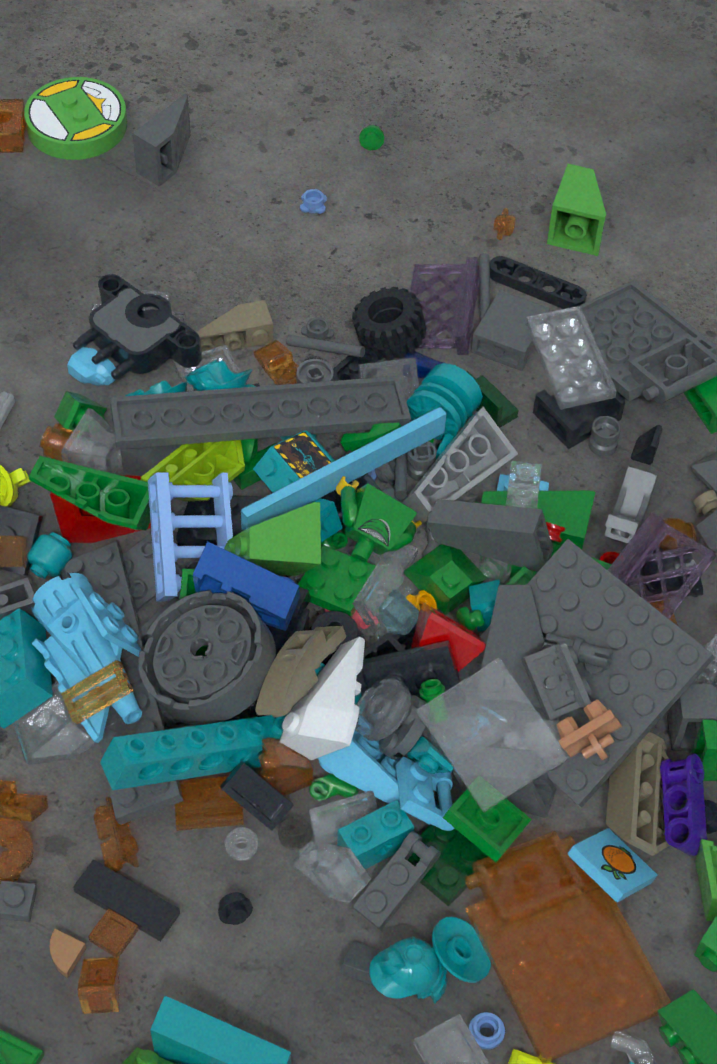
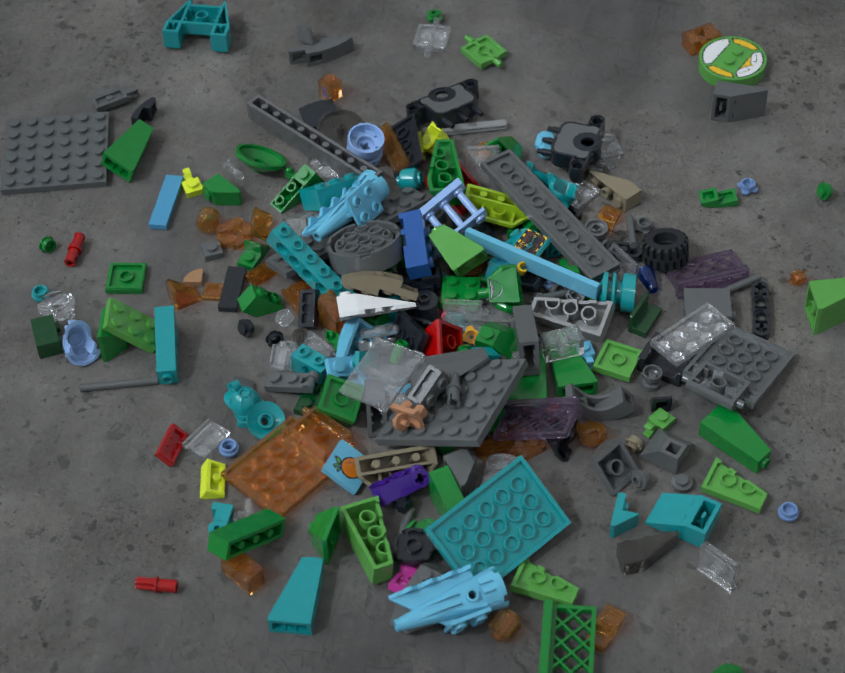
camera: 70 degrees right, 5 degrees down
(66, 840) = (253, 254): none -> green slope
(102, 702) = (317, 217): clear orange tile -> none
(190, 866) = (259, 302): none -> green slope
(282, 874) = (270, 337): none -> black plate
(315, 237) = (720, 199): none -> green slope
(555, 531) = (548, 366): red bush -> none
(559, 455) = (617, 360): none -> bright green plate
(678, 461) = (658, 419): none -> bright green plate

